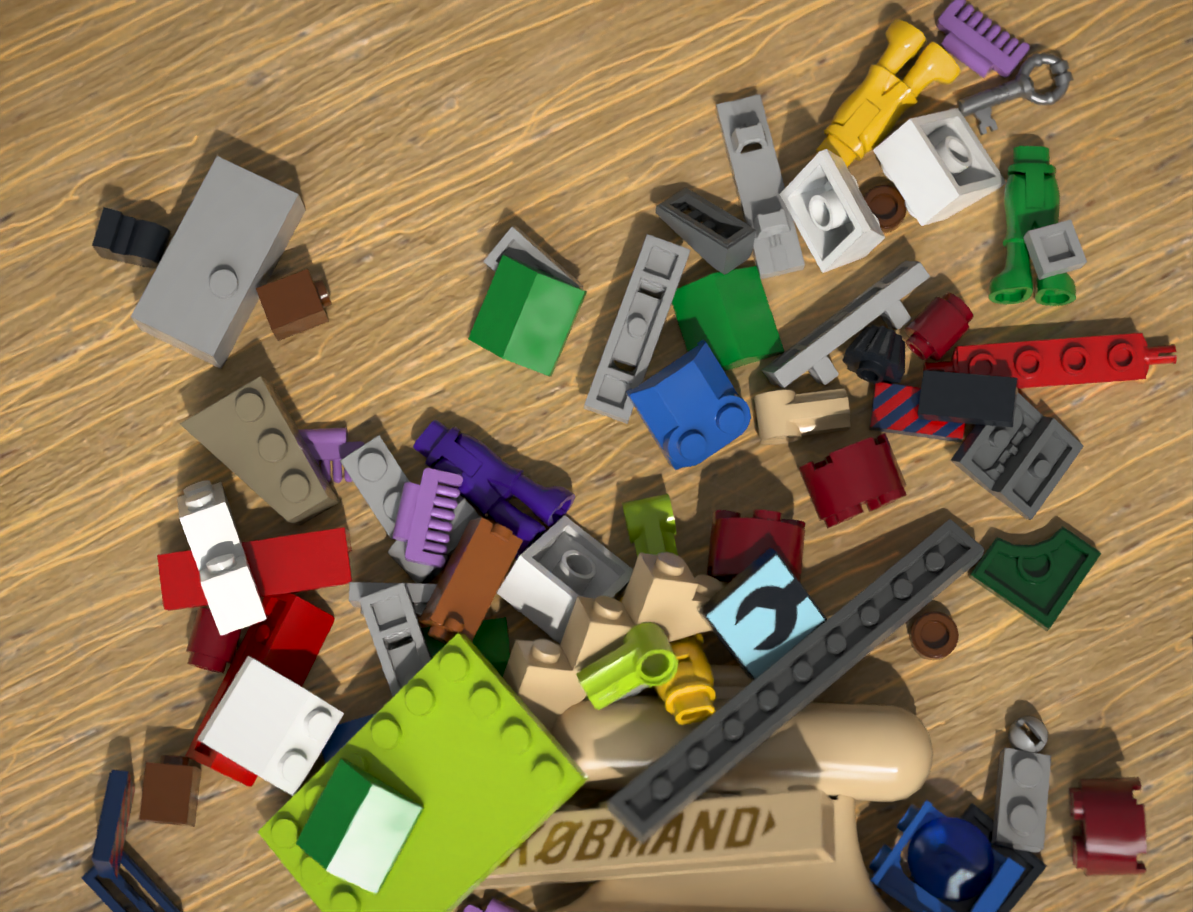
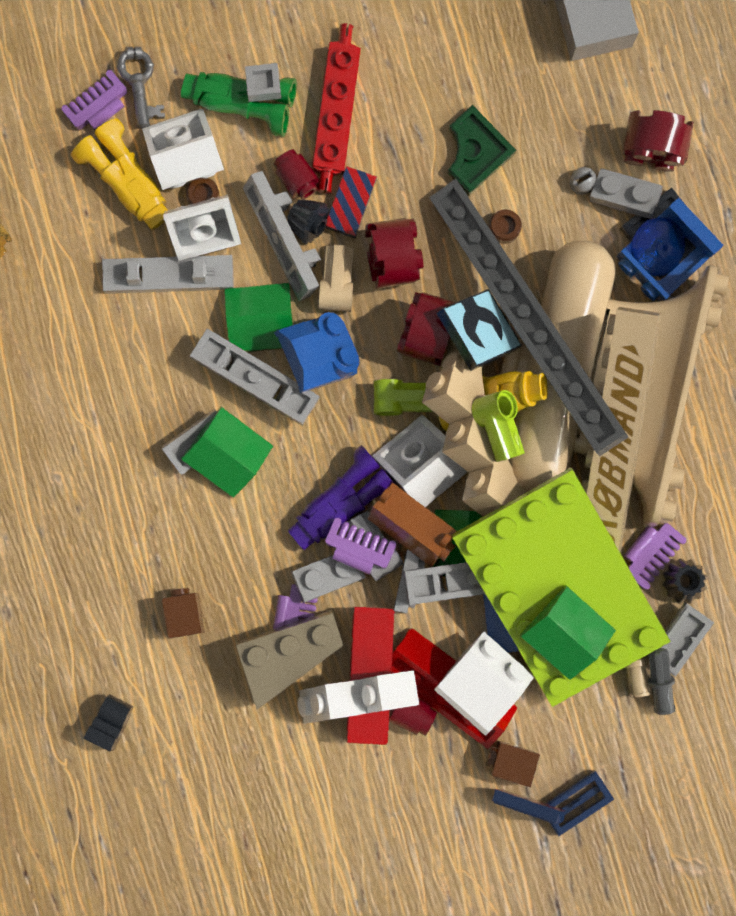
camera: 85 degrees left, 5 degrees up
(217, 262) = (140, 662): light grey brick -> none
(719, 239) = (200, 307): dark grey slope -> none
(968, 398) = (352, 164): black tile -> none
(1019, 462) = (393, 143): dark grey slope -> none

